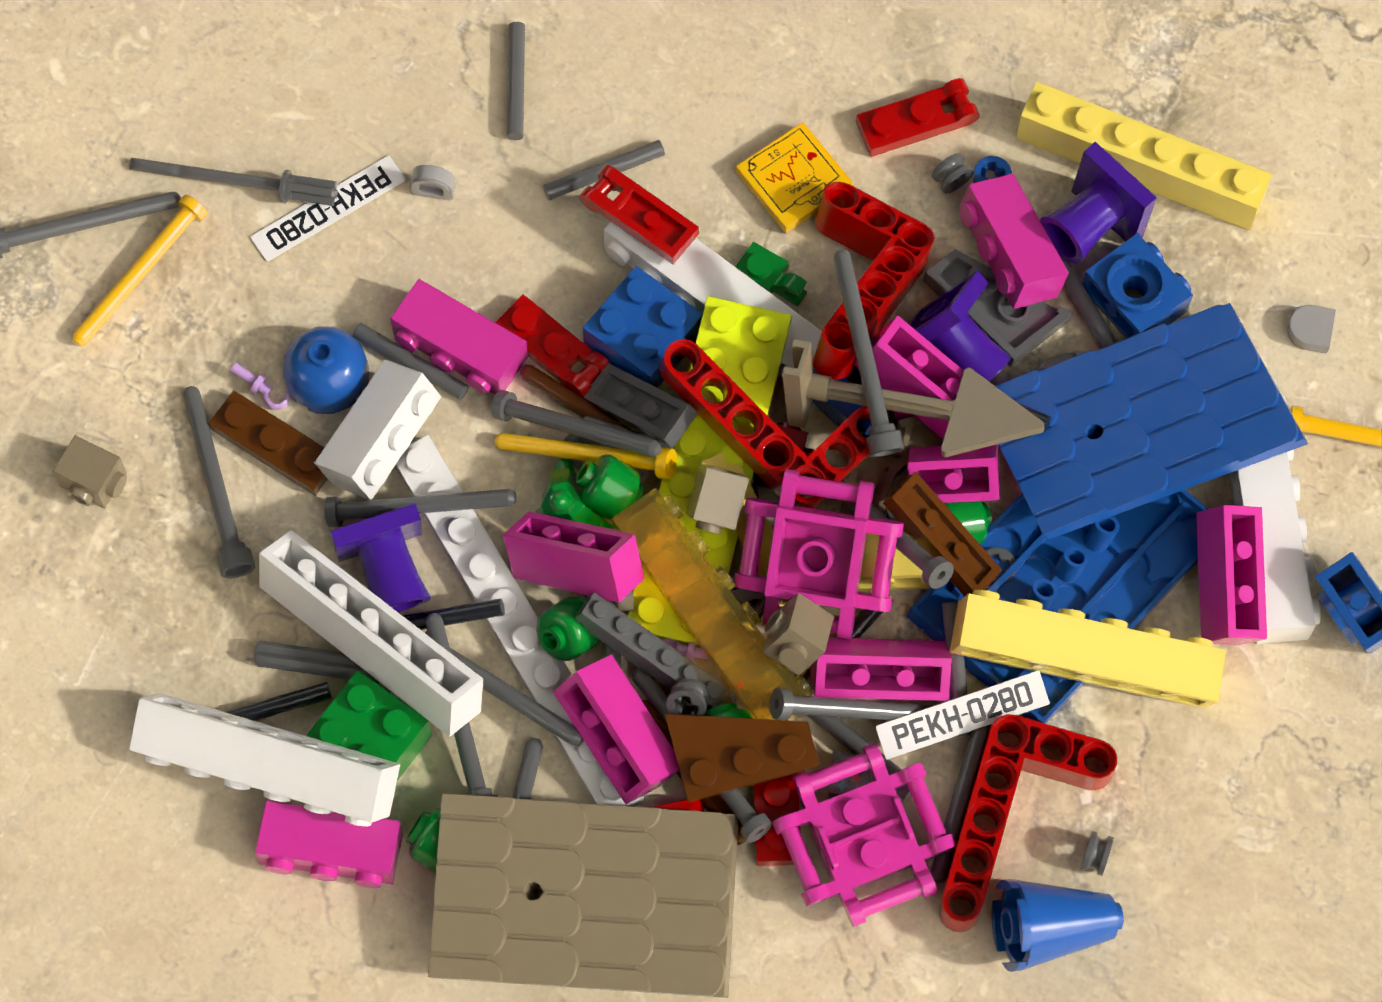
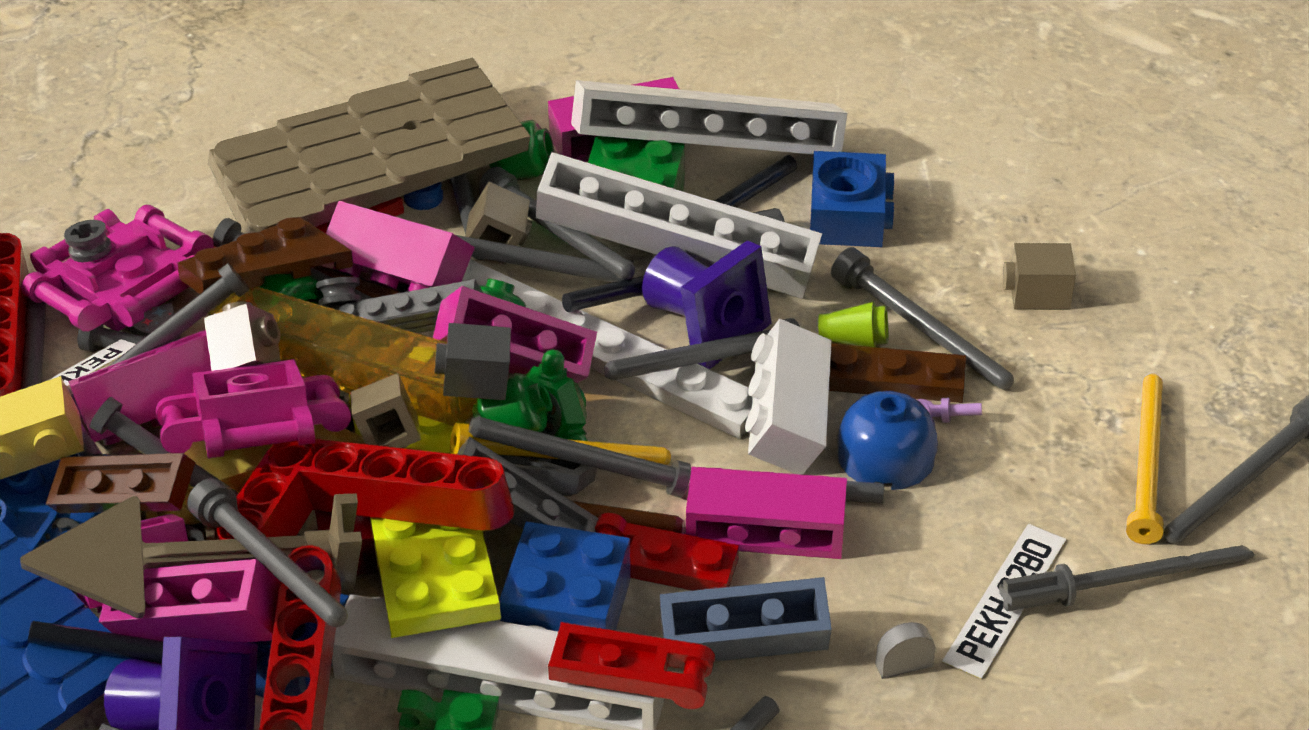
camera: 155 degrees right, 25 degrees down
(179, 615) = (851, 198): none -> blue brick
(274, 493) = (856, 325): none -> lime cone
(510, 742) = (499, 217): none -> dark tan brick
(534, 237) = (751, 618): none -> sand blue brick
(632, 482) = (474, 361): none -> dark grey brick
(898, 839) = (87, 240): none -> dark grey bush

